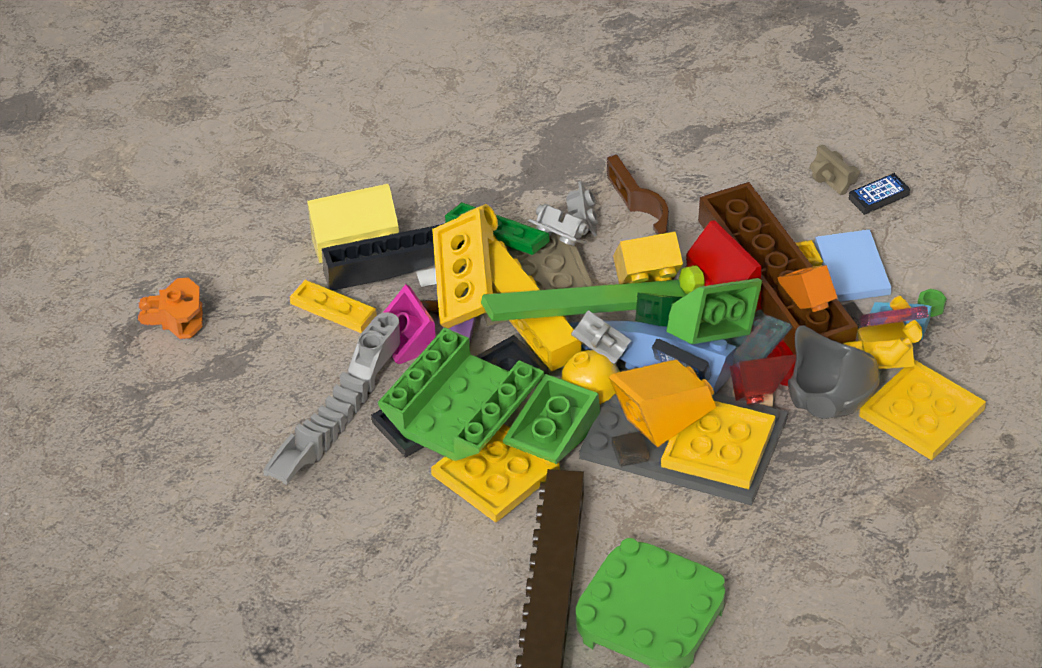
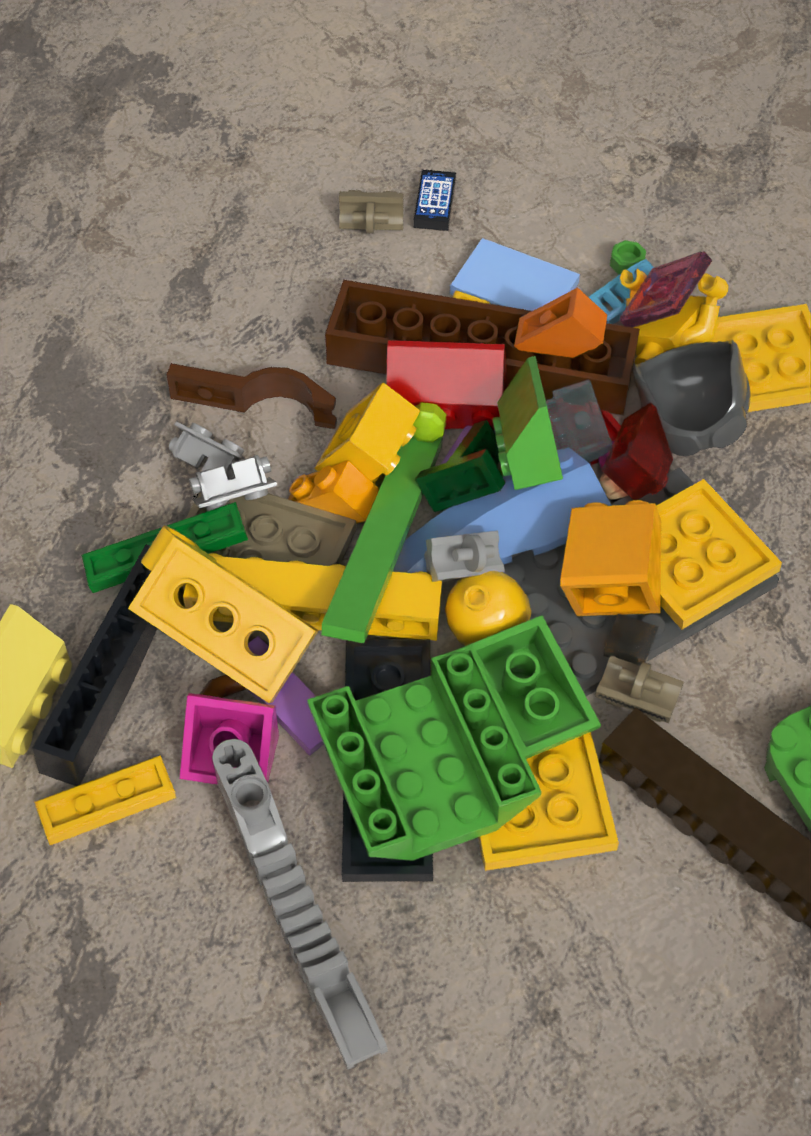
camera: 55 degrees left, 10 degrees up
(427, 277) = (156, 666): white sticker -> none
(603, 473) = (639, 688): none -> dark tan hips
(604, 270) = (337, 490): none -> light orange slope
(666, 352) = (560, 505): black tile -> none

